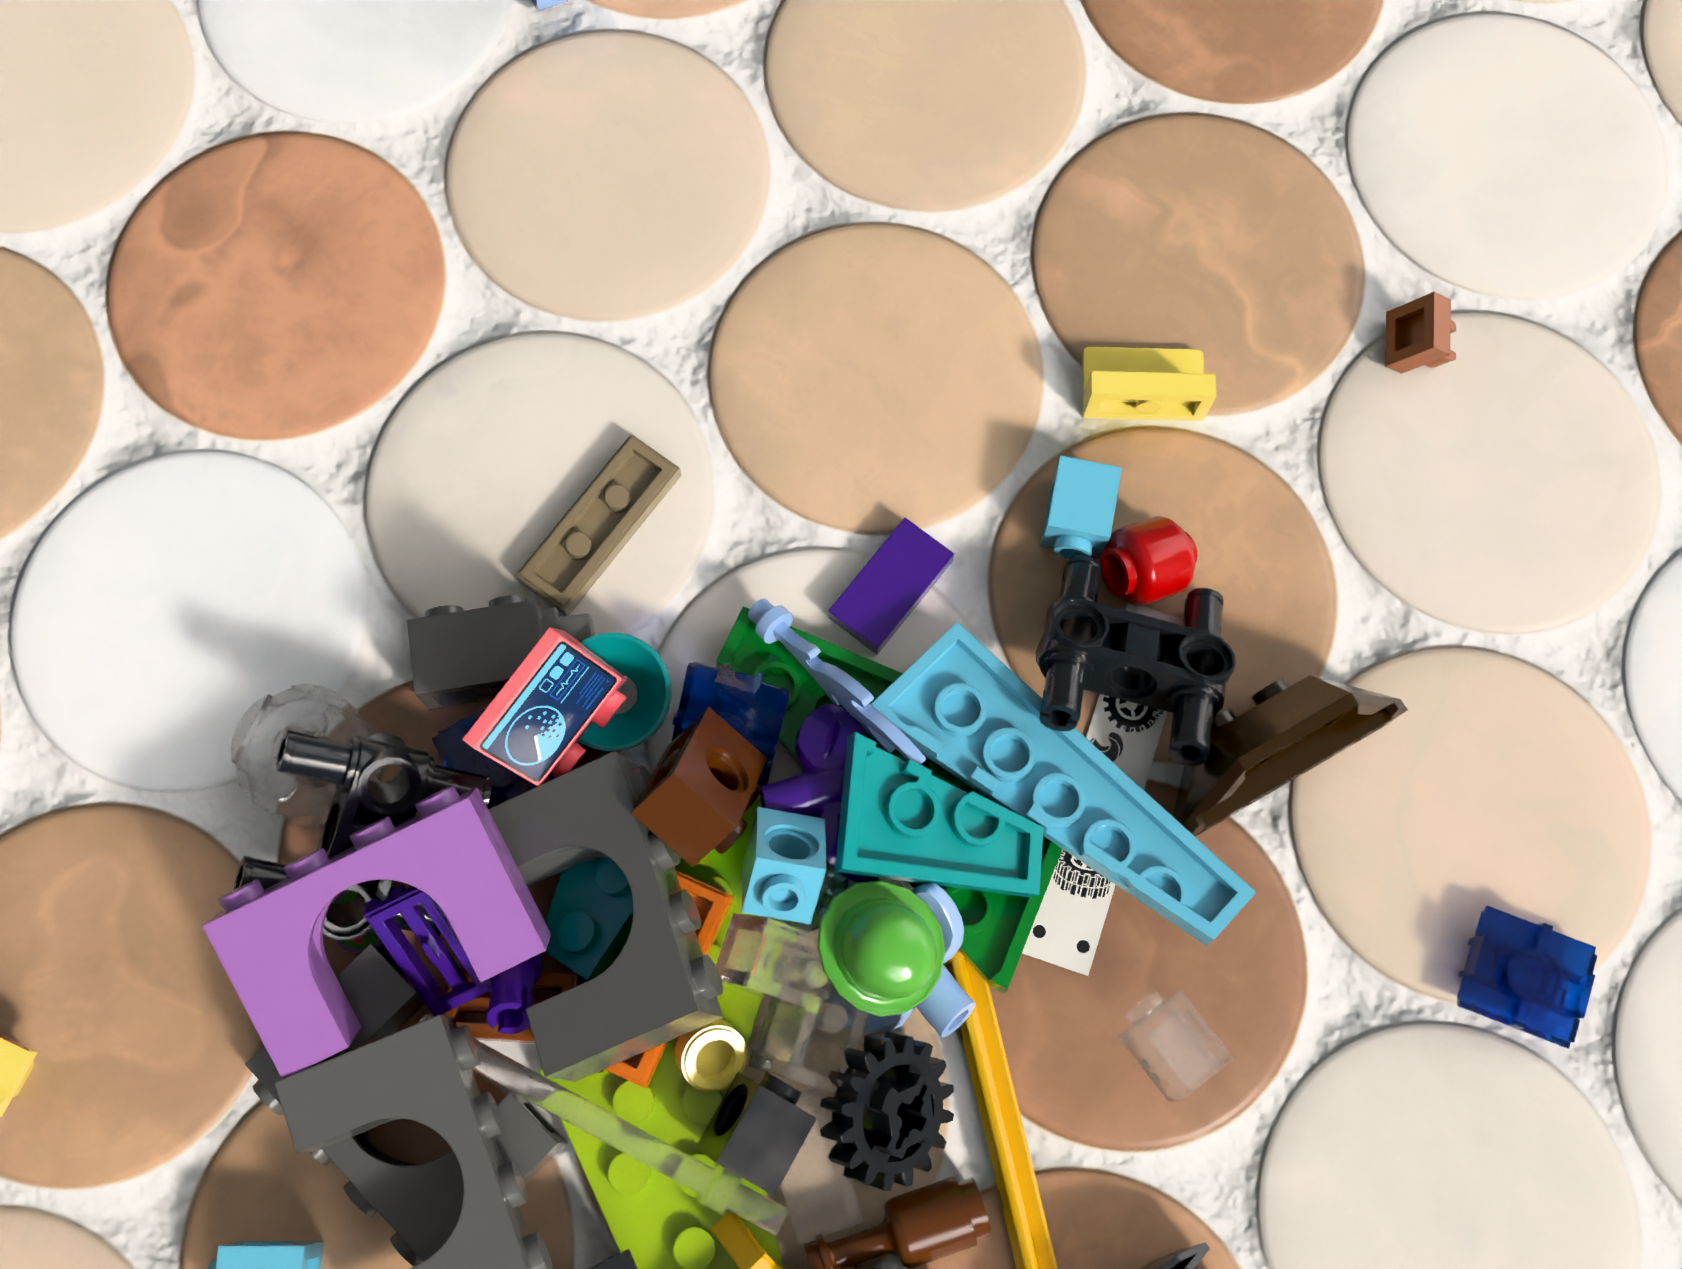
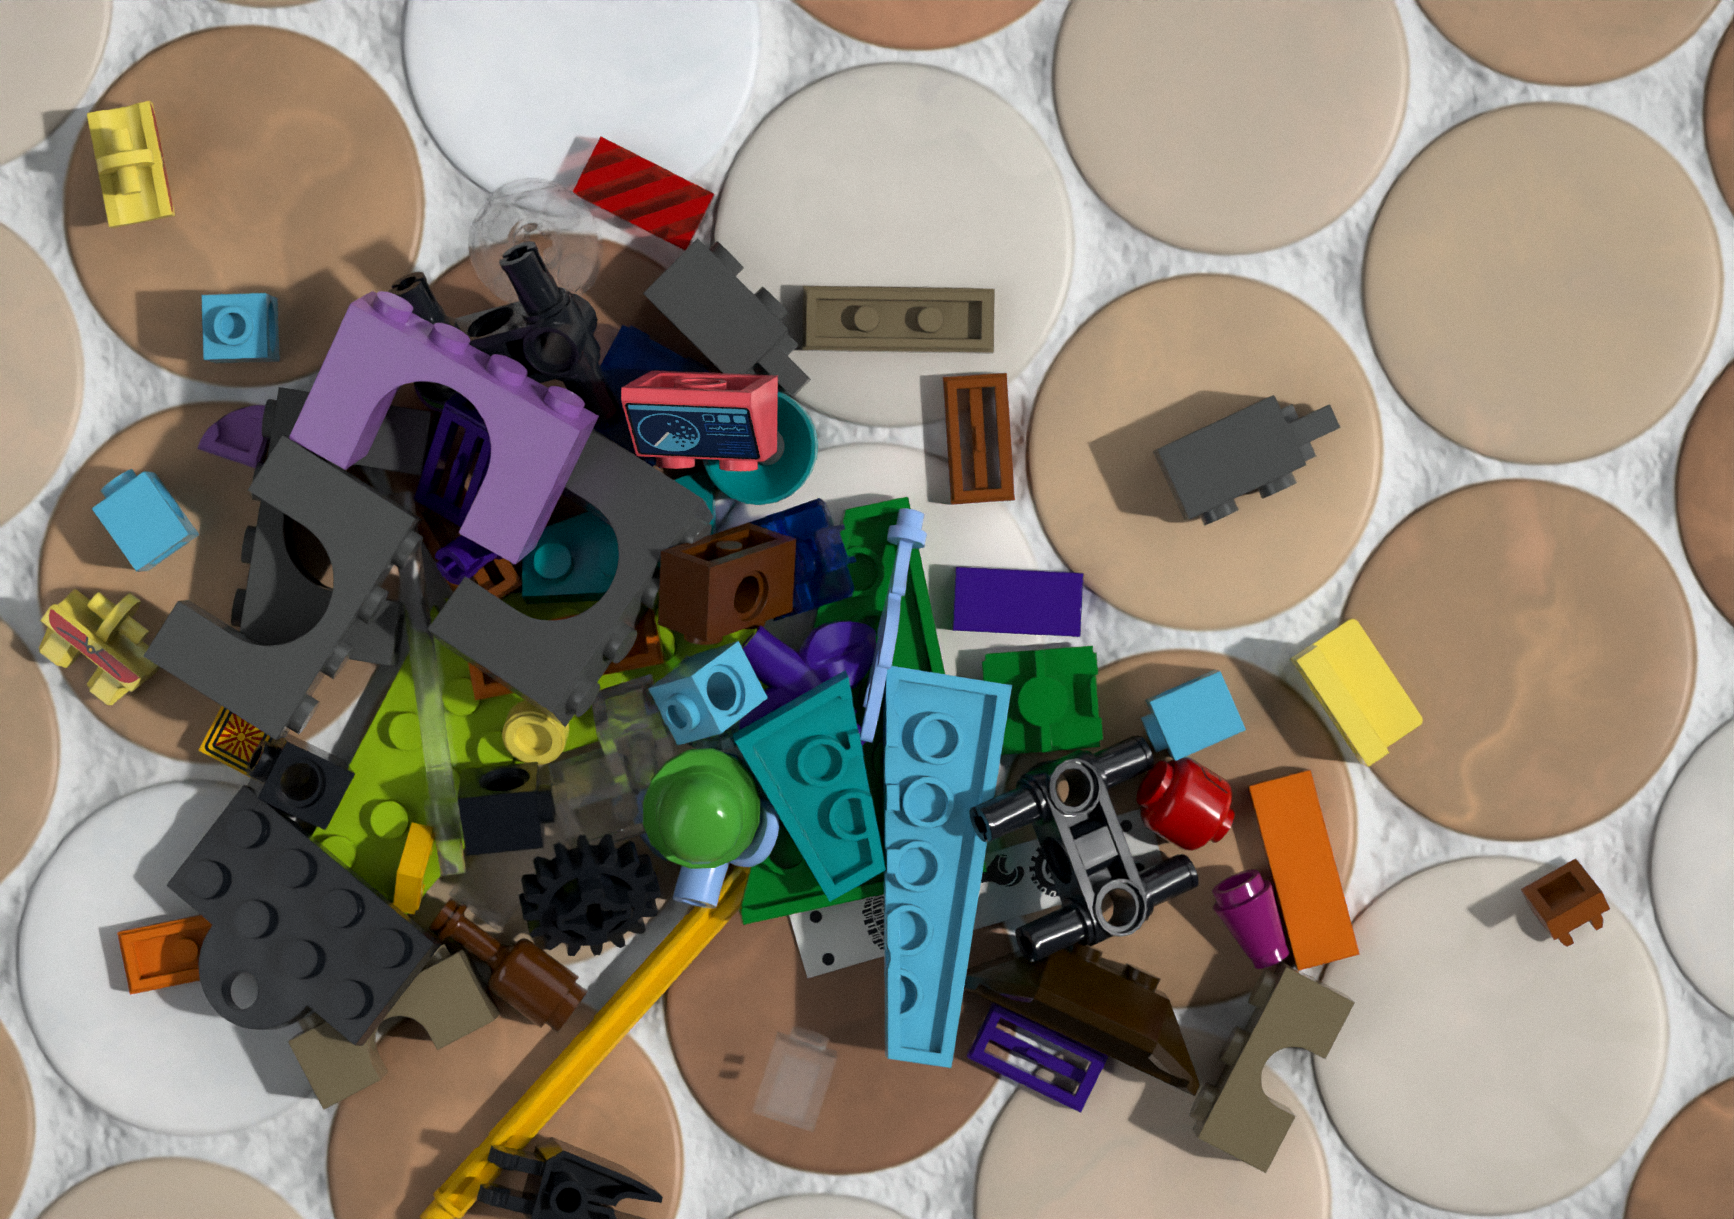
camera: 55 degrees right, 15 degrees up
(173, 1064) = (240, 328): none -> medium azure brick
(263, 1142) = (238, 436): none -> medium lavender tile
(346, 647) = (643, 194): none -> tile
(782, 555) = (975, 384): none -> dark orange tile
(895, 342) = (1239, 454): none -> dark grey hinge
(991, 604) = (1050, 698): none -> green piece
(1235, 852) = (1086, 1078): none -> dark purple tile
(1263, 514) = (1303, 869): none -> orange tile
(1275, 574) = (1251, 916): none -> magenta cone
(1377, 601) = (1288, 1013): none -> dark tan arch

